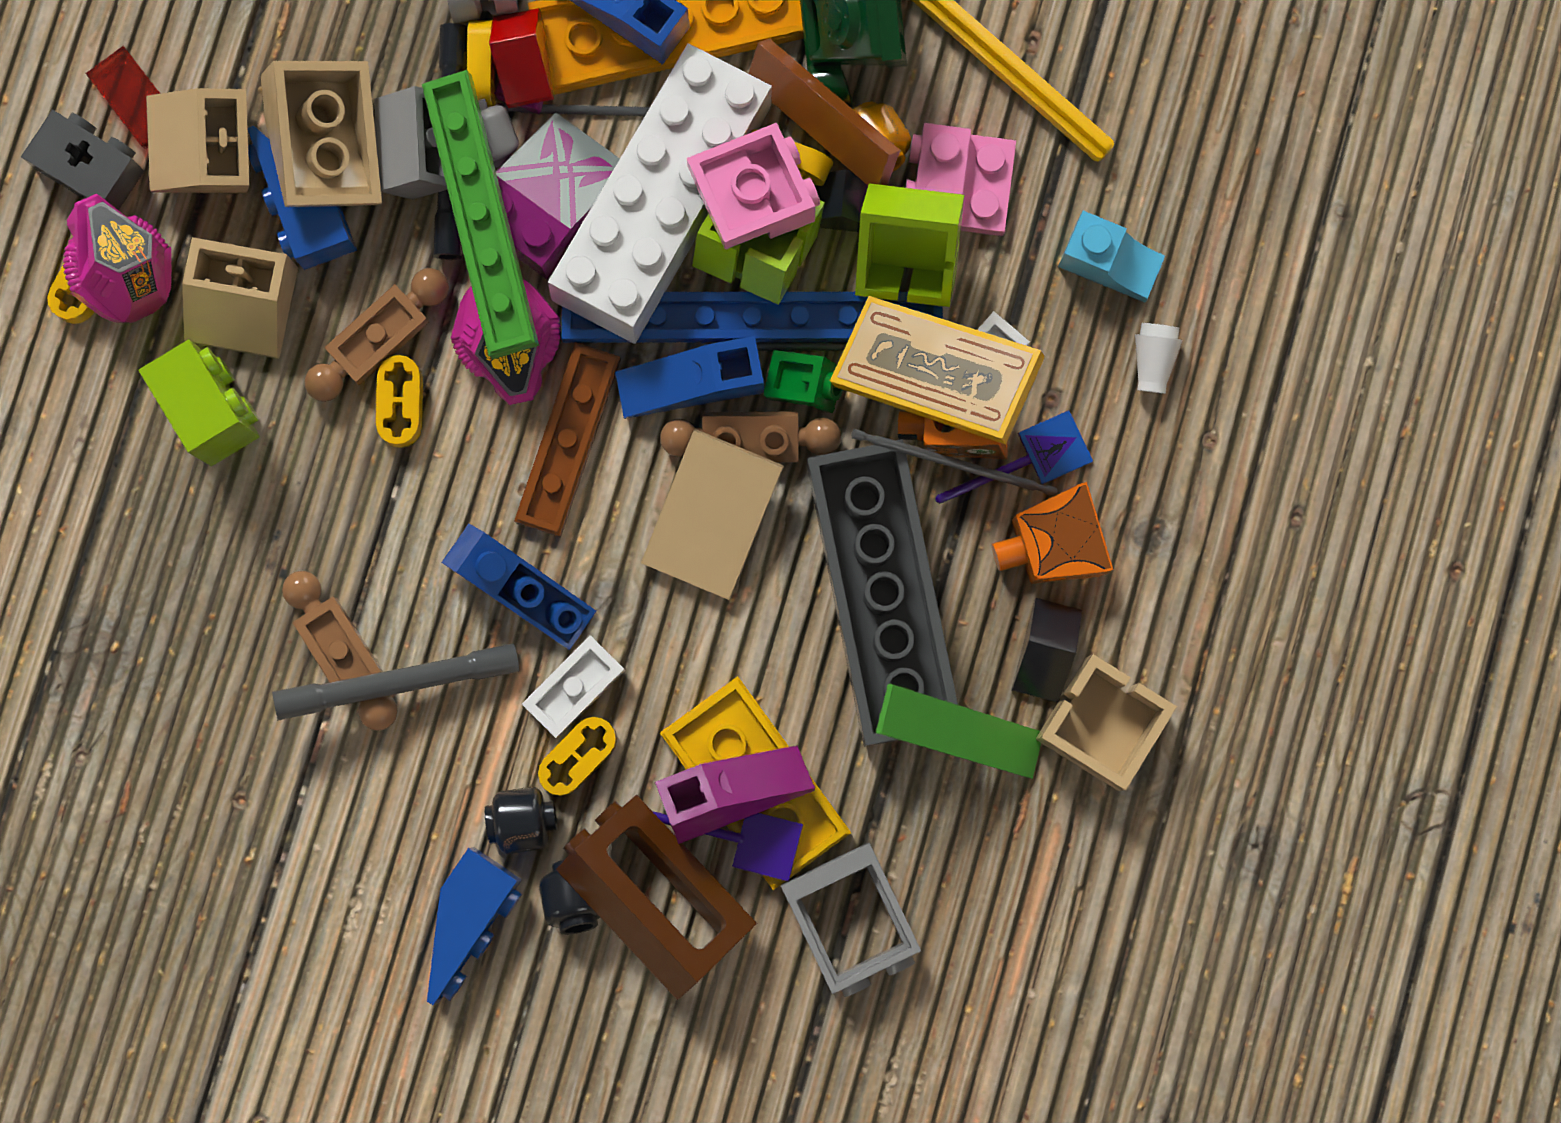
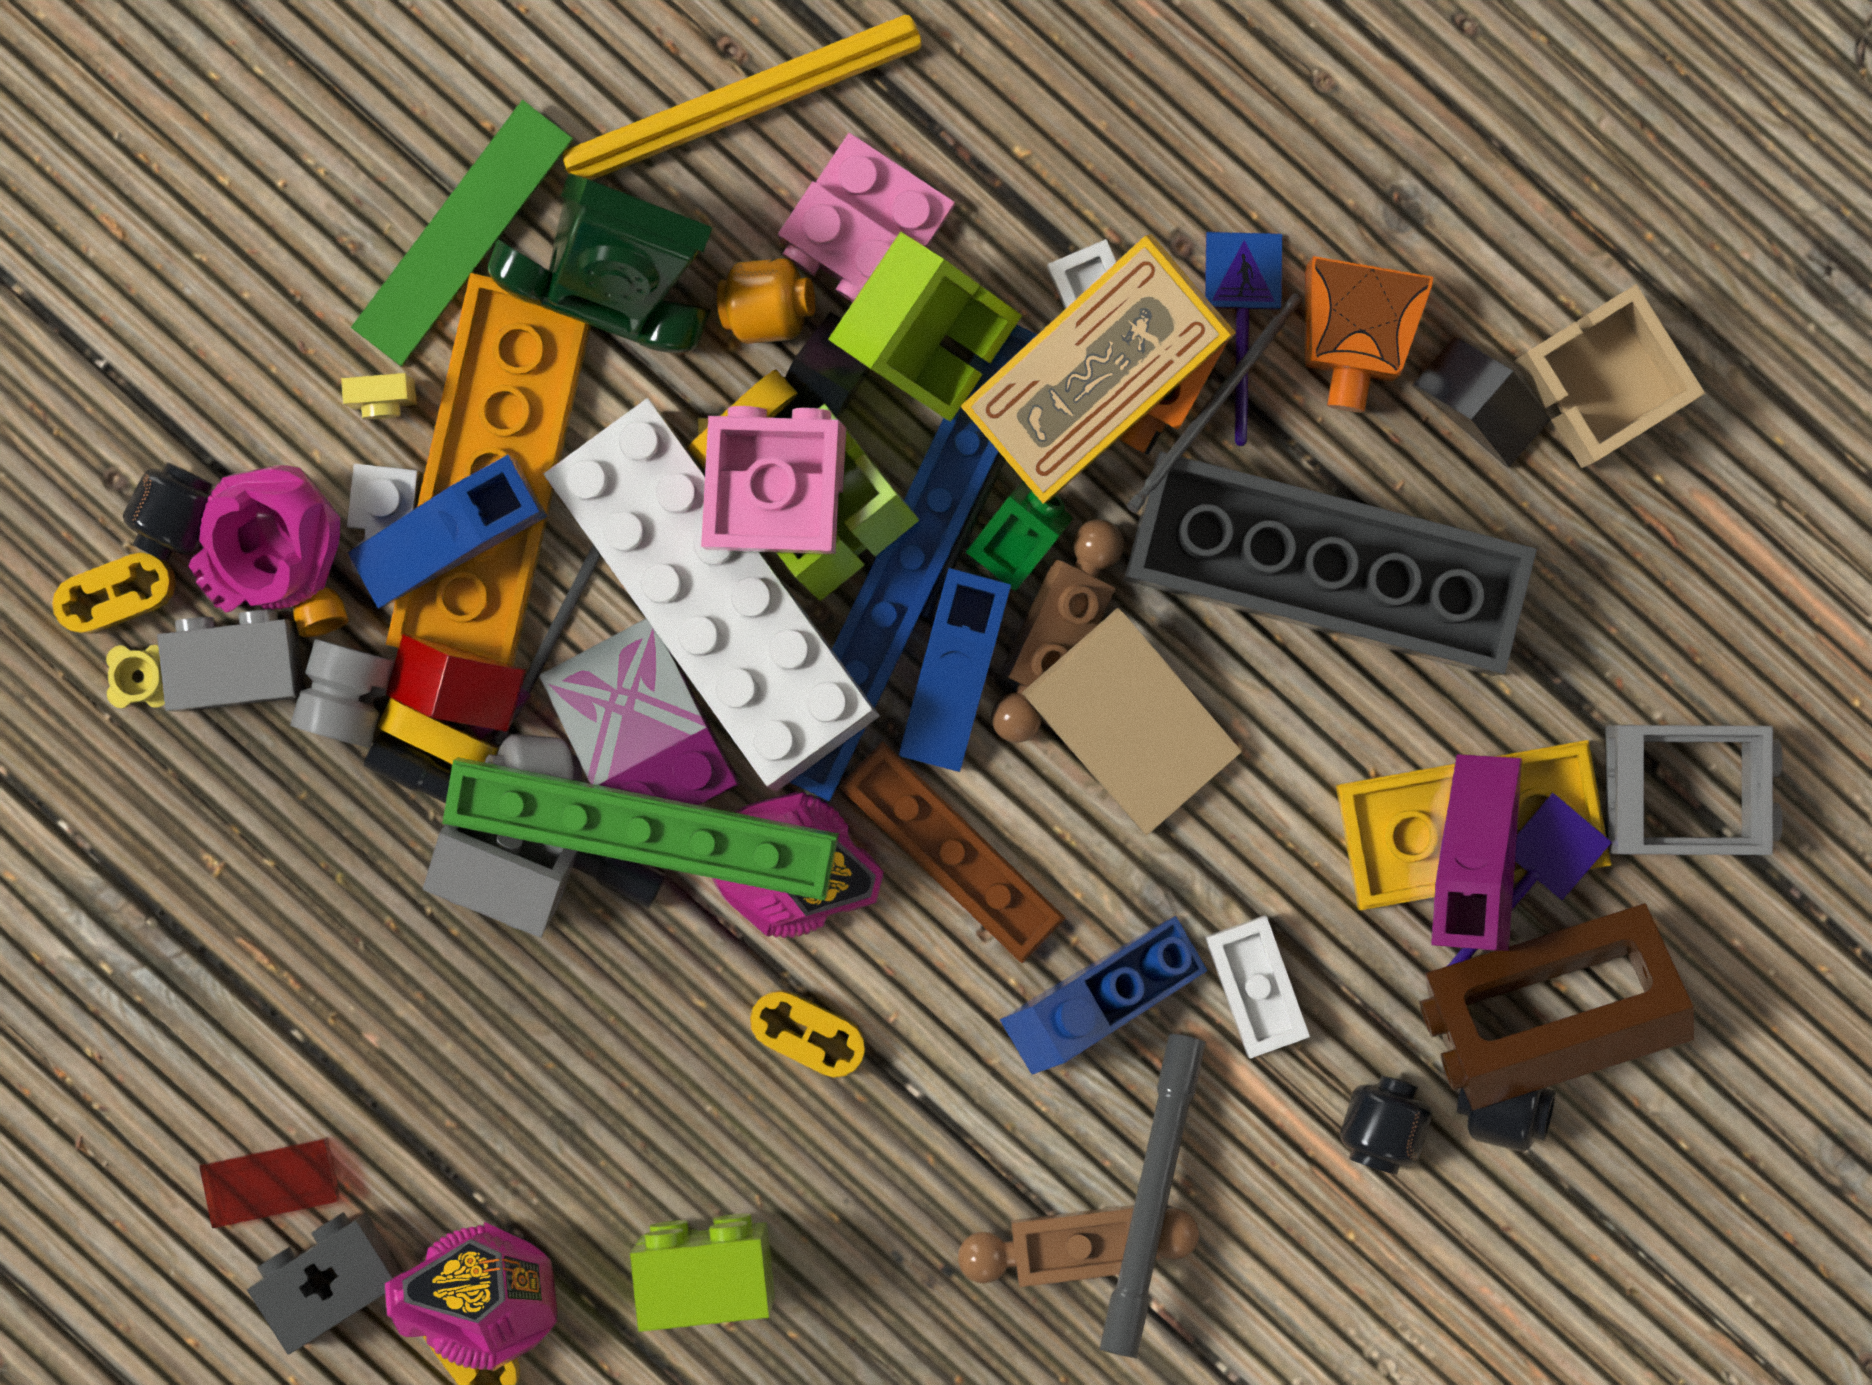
camera: 65 degrees left, 5 degrees up
(198, 141) = (373, 1129): tan slope -> none
(237, 297) = (590, 1171): tan slope -> none
(309, 233) = (525, 1035): blue slope -> none
(322, 132) = (441, 973): tan slope -> none
(376, 334) = (713, 1022): medium nougat plate -> none
(466, 910) = (1458, 1232): blue slope -> none
(568, 747) = (1326, 1026): yellow beam -> none
(824, 115) = (711, 352): dark orange tile -> none
(958, 731) = (1543, 556): bright green piece -> none
(1111, 257) = (1048, 89): medium azure arch -> none
(1156, 354) = (1193, 94): white cone -> none

